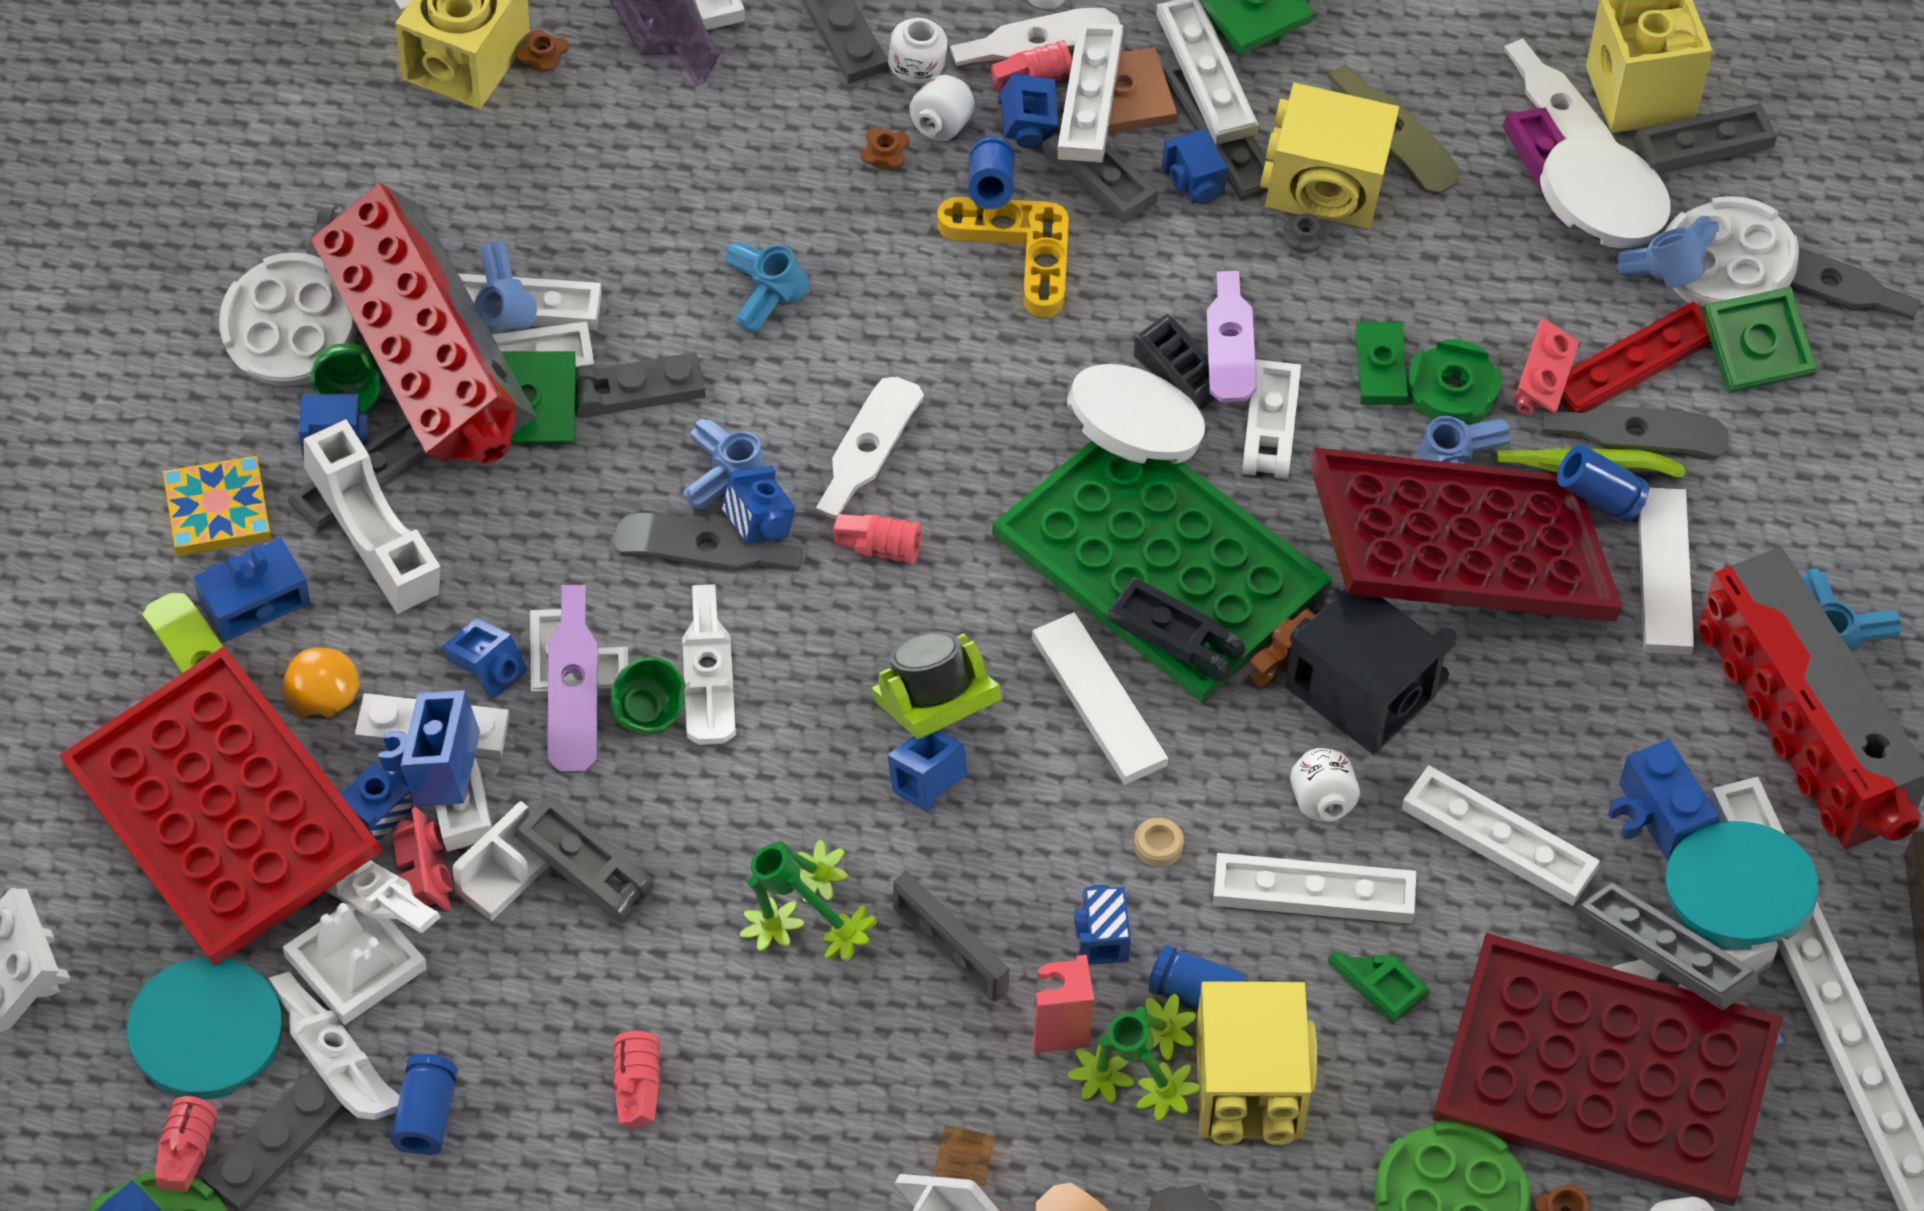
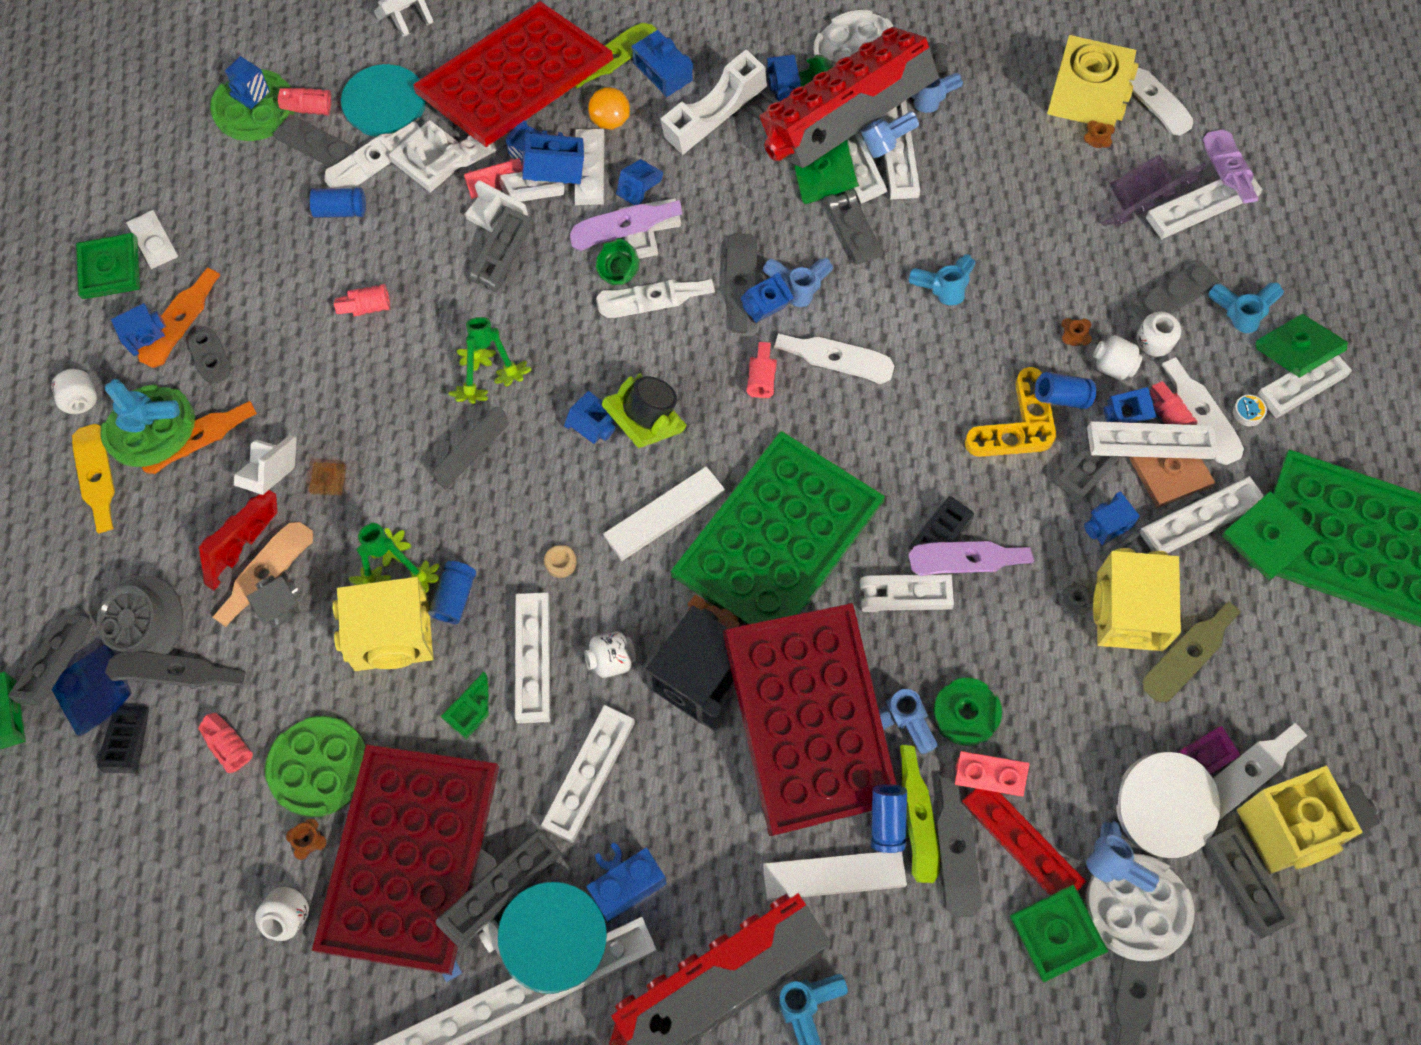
camera: 85 degrees right, 10 degrees up
(216, 505) = (721, 39): tile -> none
(1064, 1014) = (416, 512): coral hinge -> none
(1103, 925) = (488, 532): blue brick -> none
(1136, 414) = (883, 502): white tile -> none
(1175, 628) = (710, 542): black hinge -> none
(1381, 363) = (975, 661): green plate -> none

